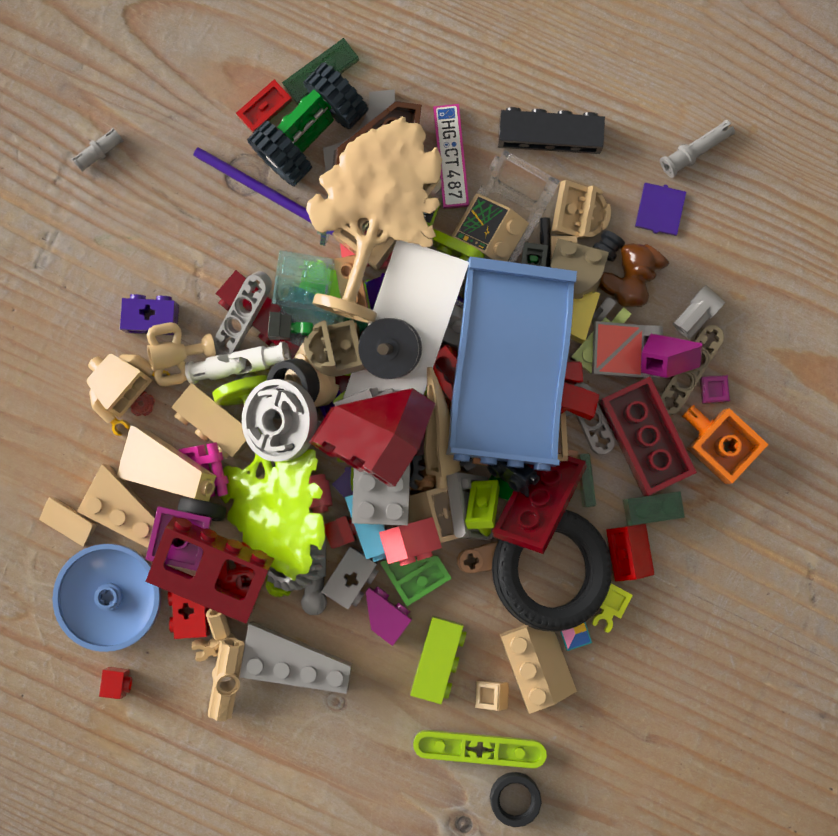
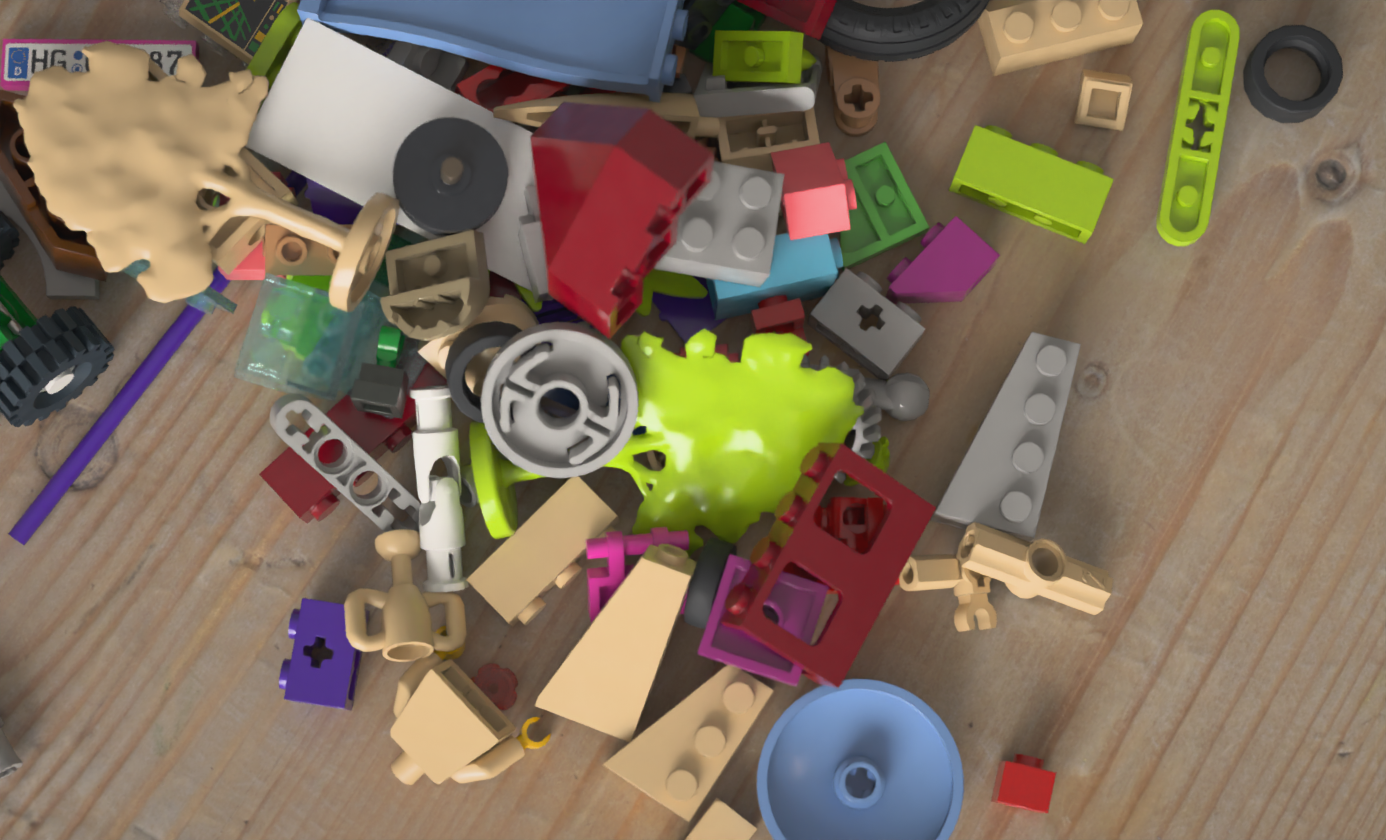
camera: 85 degrees left, 5 degrees down
(187, 625) = (930, 637): red brick -> none

